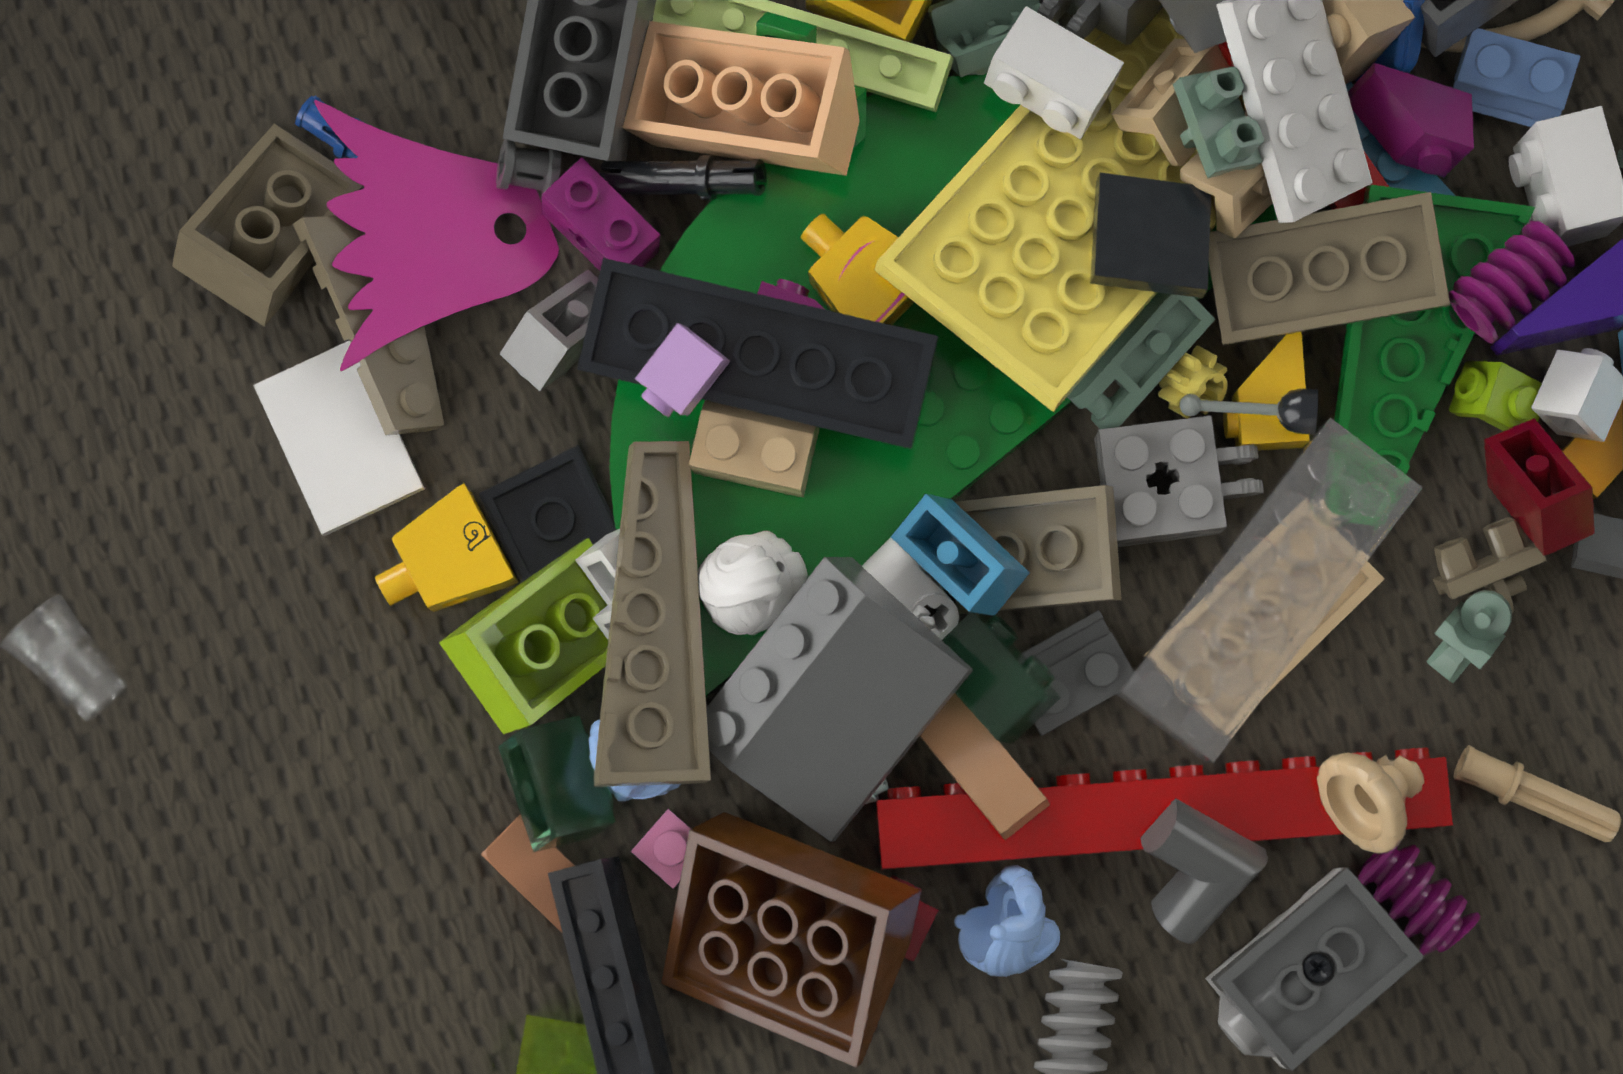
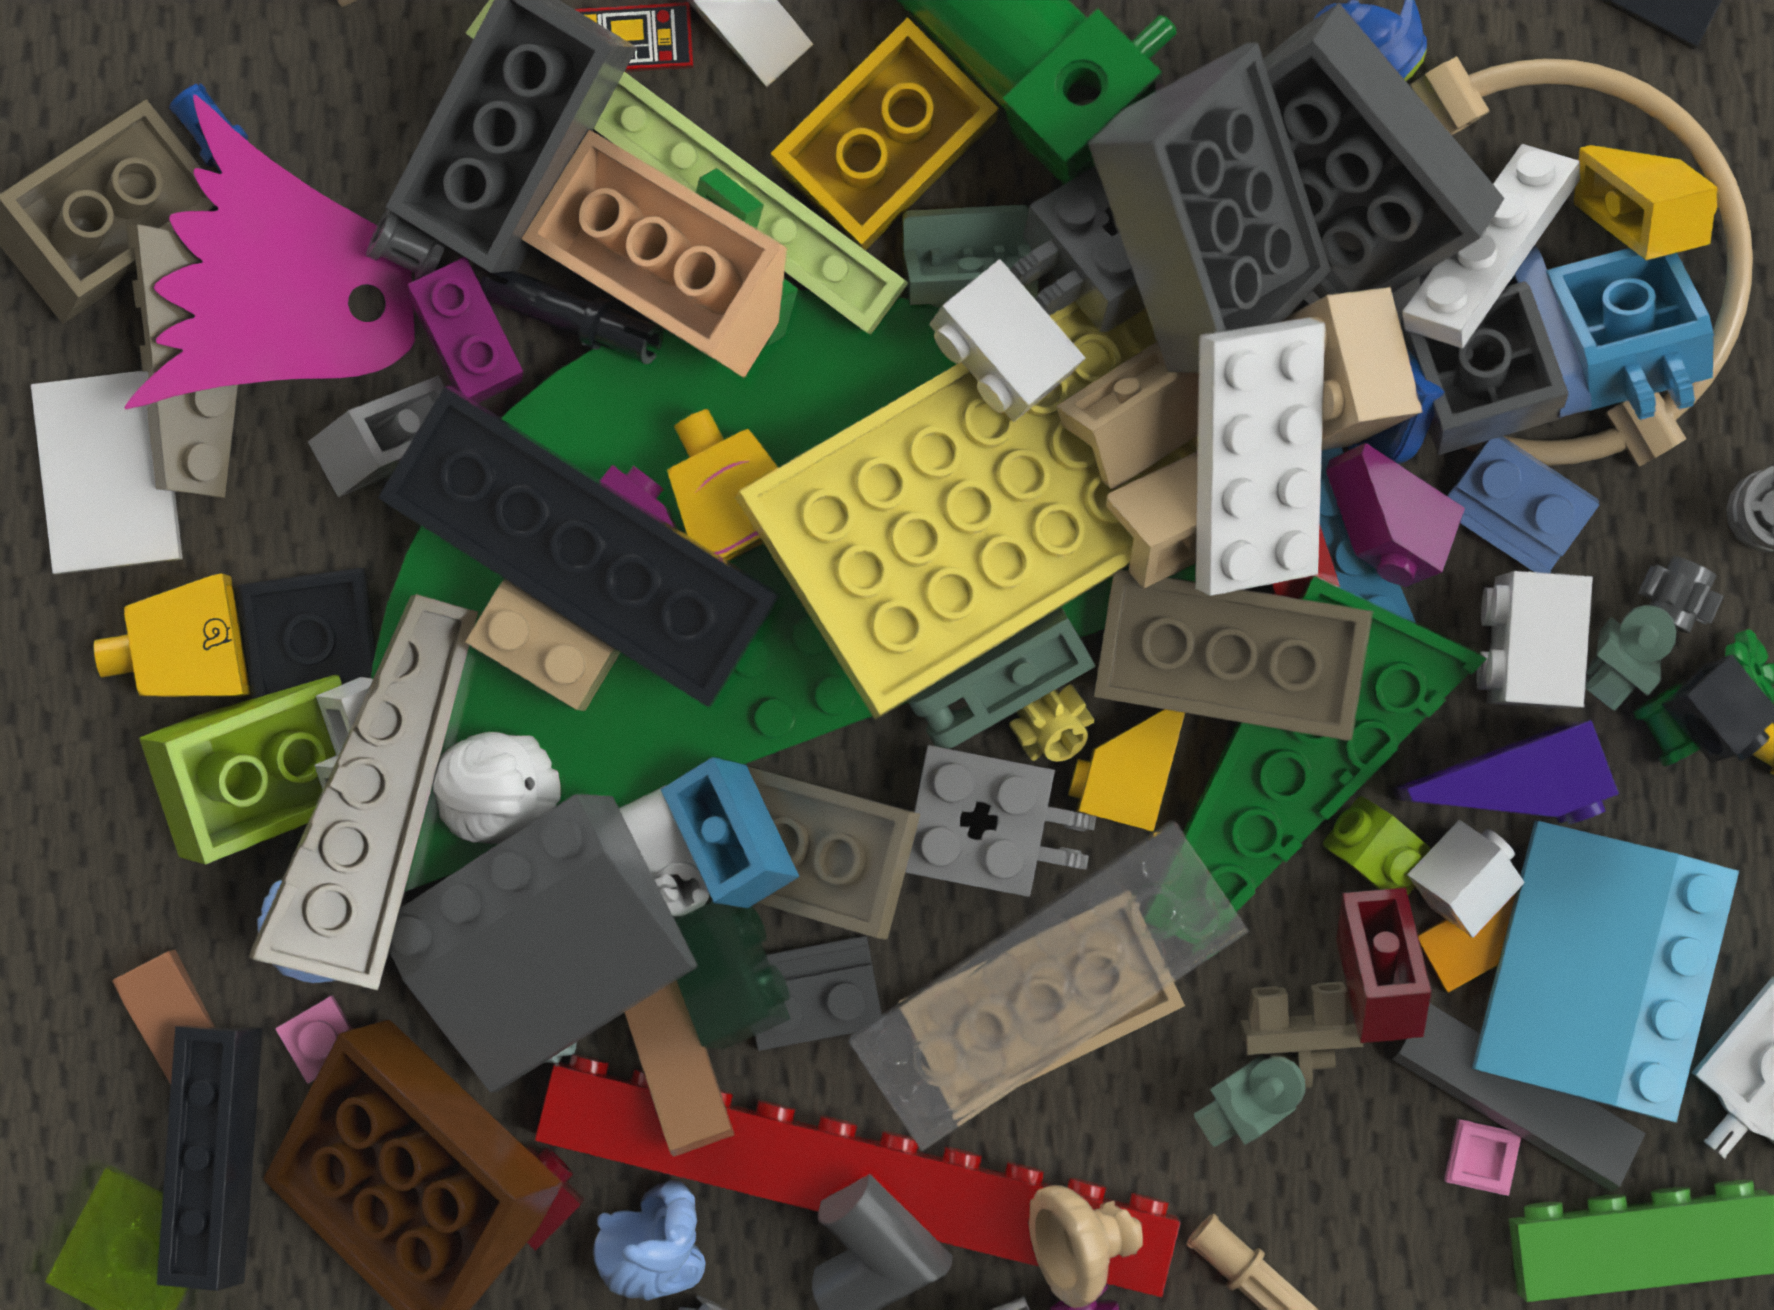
camera: 10 degrees right, 5 degrees up
(556, 784) = (213, 932): clear green brick -> none
(680, 372) = (485, 543): lavender brick -> none
(1151, 235) = (1049, 558): black tile -> none
(1217, 121) = (1163, 460): sand green hips -> none
(1295, 409) = (1145, 796): hinge -> none
(1509, 278) = (1427, 734): magenta piece -> none

